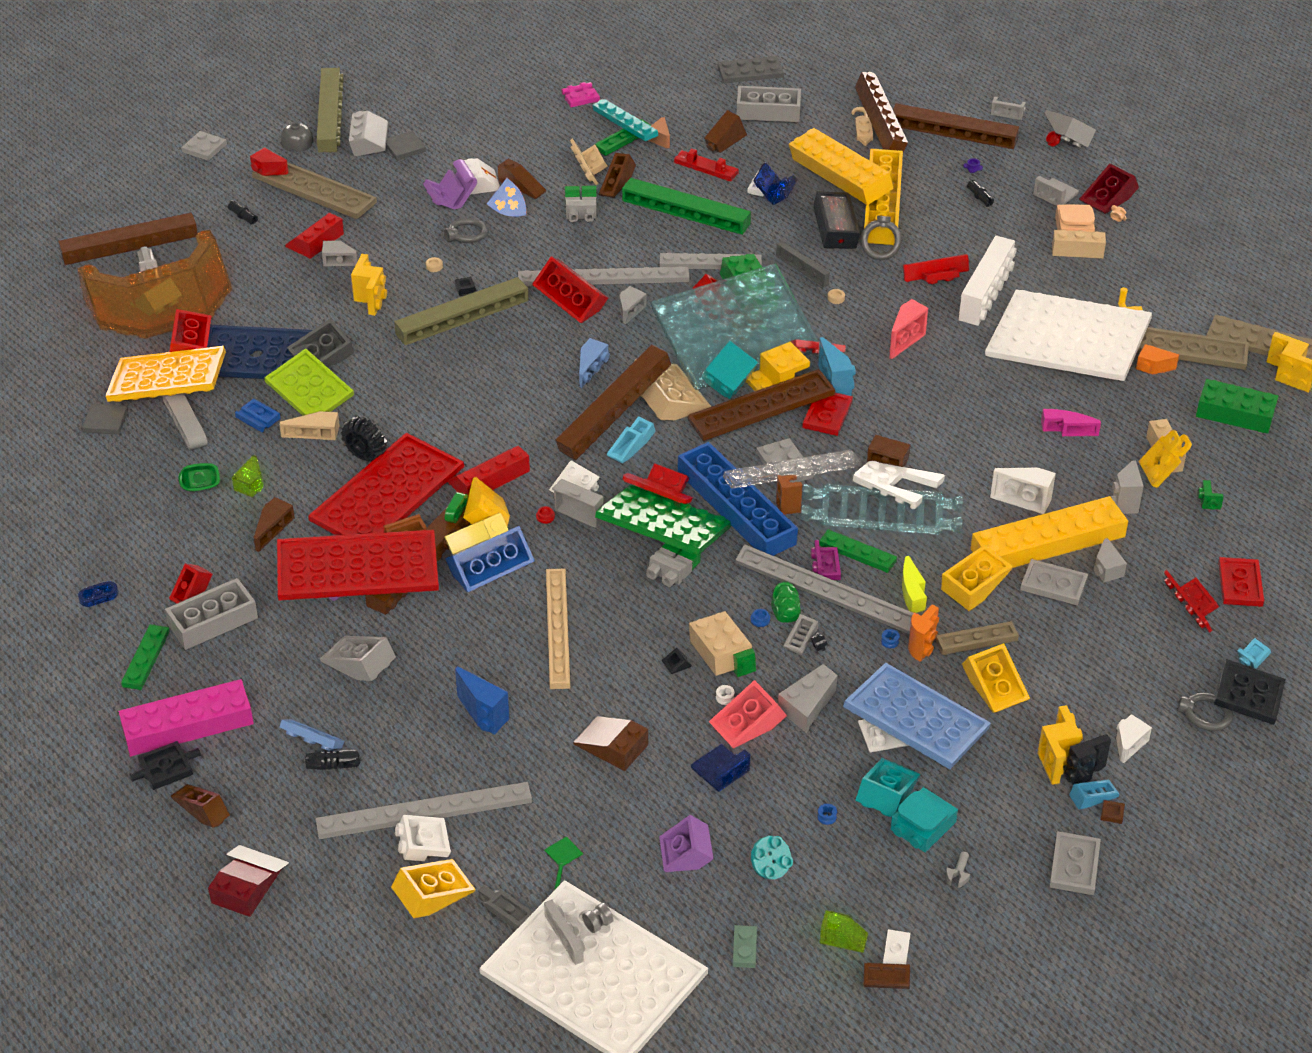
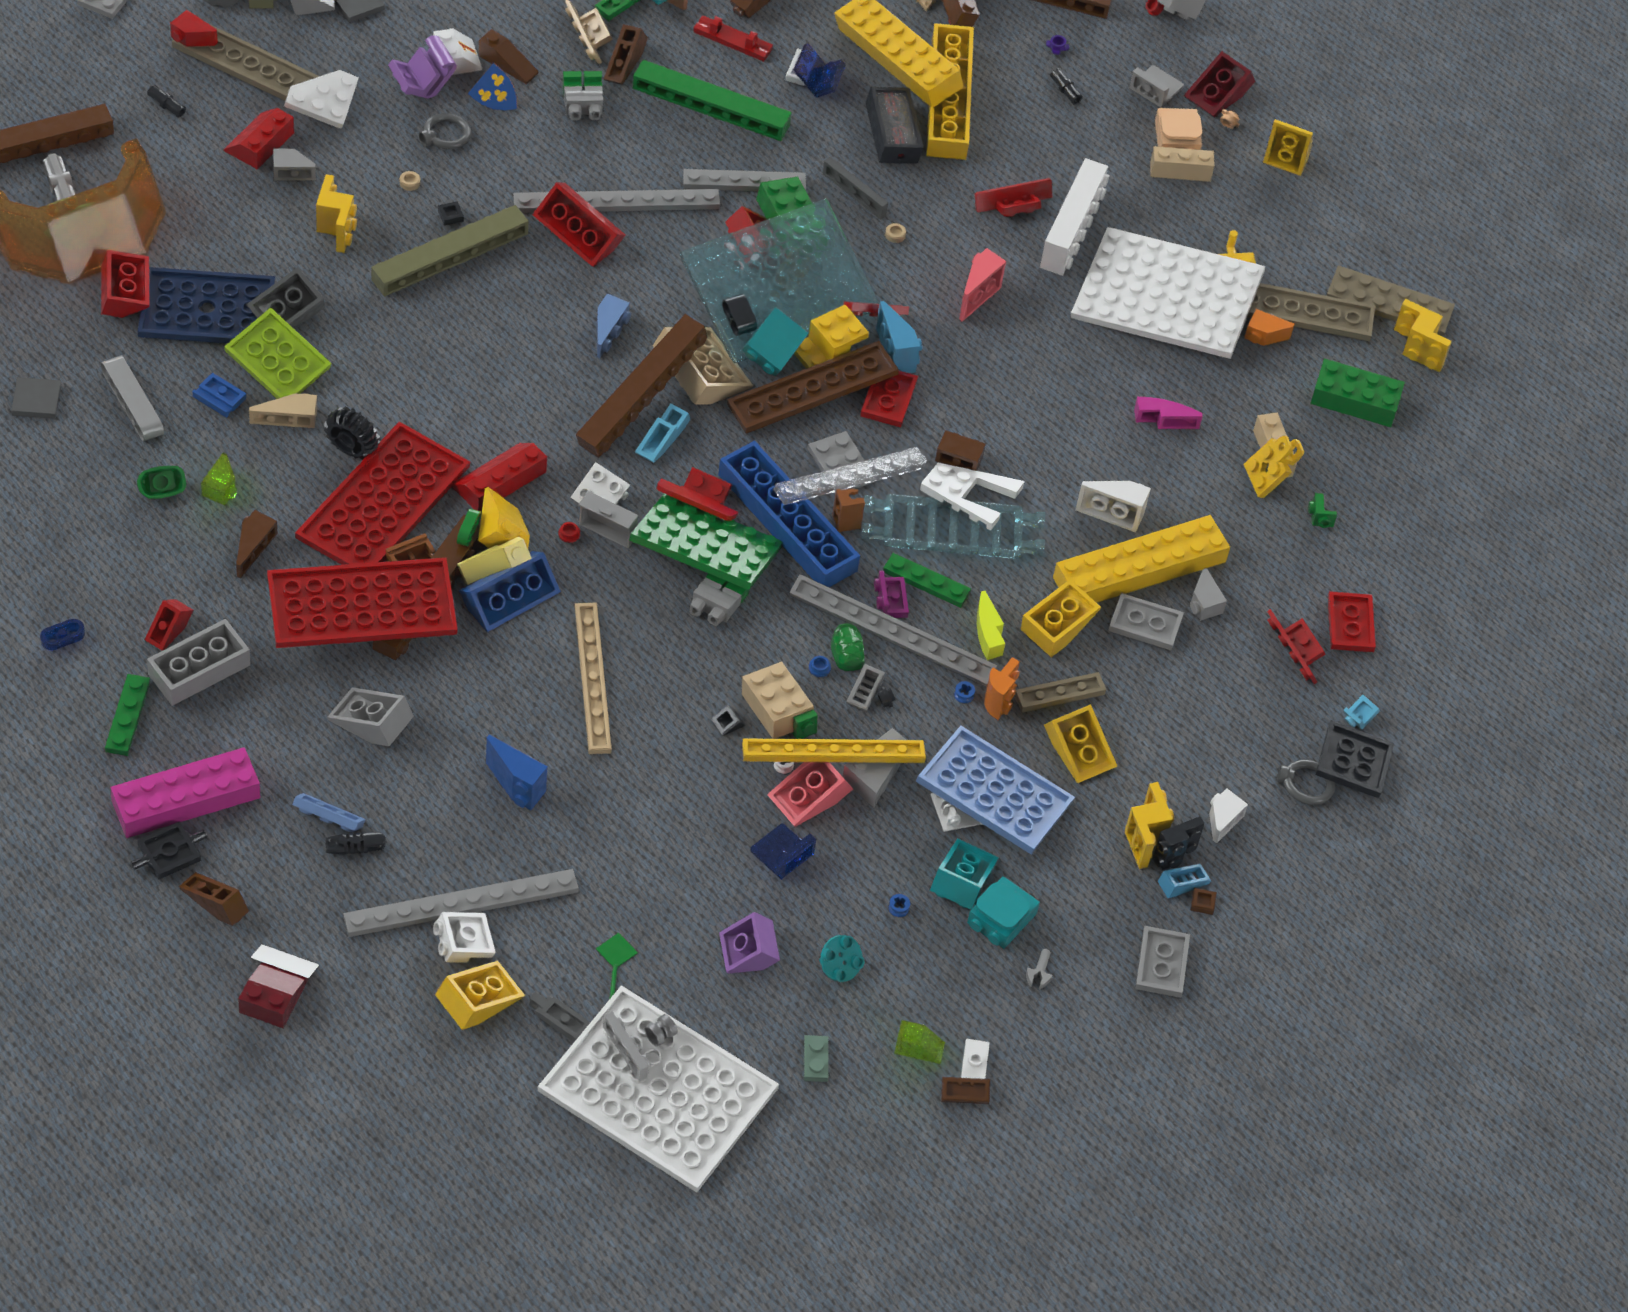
camera: 10 degrees left, 10 degrees up
(166, 374) = (104, 339): yellow plate -> none
(369, 207) = (324, 97): none -> white plate
(614, 740) = (663, 818): reddish brown slope -> none
(631, 303) = (652, 241): light grey slope -> none
(699, 349) = (739, 314): none -> black beam
(768, 680) = (833, 750): none -> yellow tile
(882, 221) = (951, 135): dark grey piece -> none
(1128, 489) = (1231, 505): light grey slope -> none
(1169, 228) = (1288, 147): none -> yellow slope

